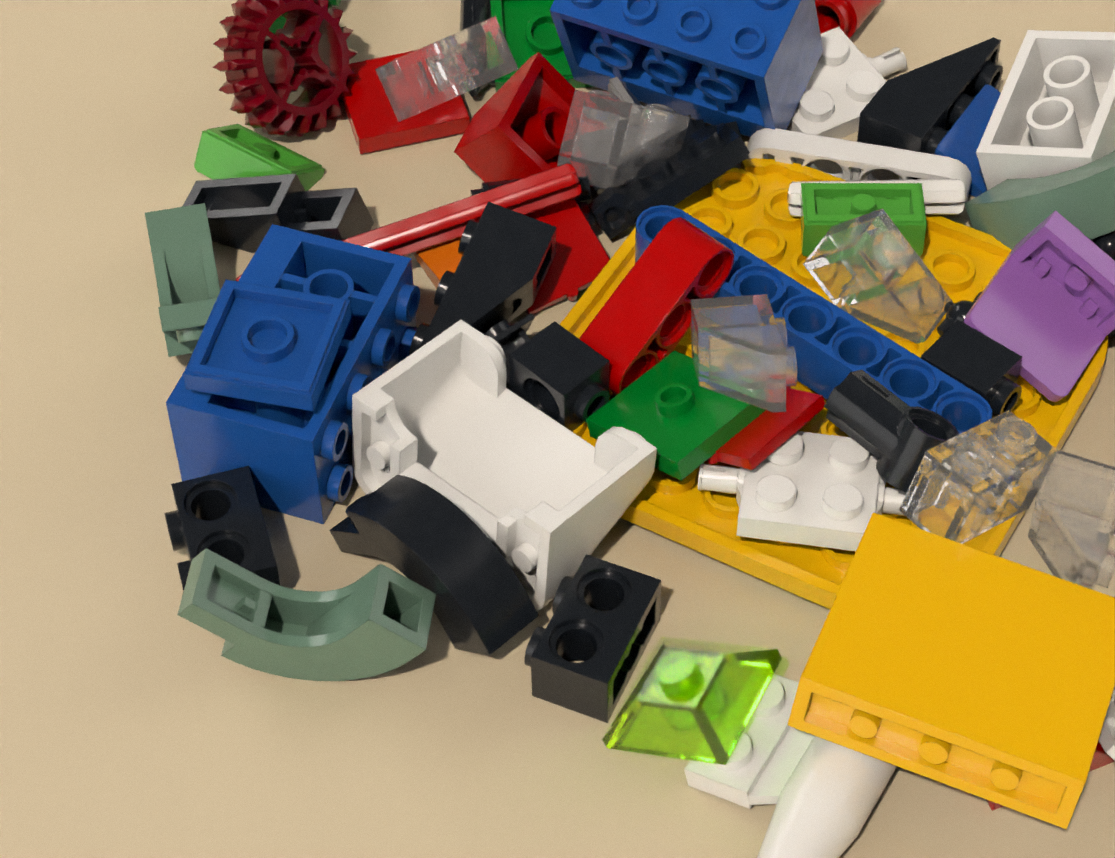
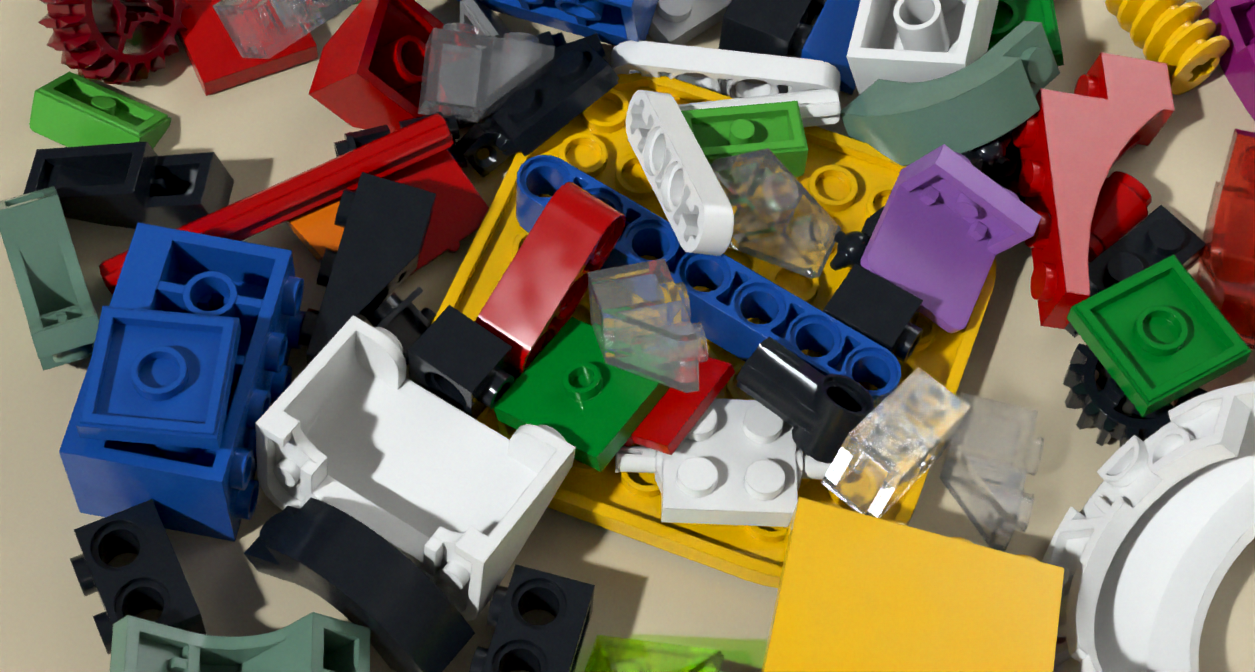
camera: 15 degrees left, 10 degrees up
(794, 230) = (679, 173): none -> white beam

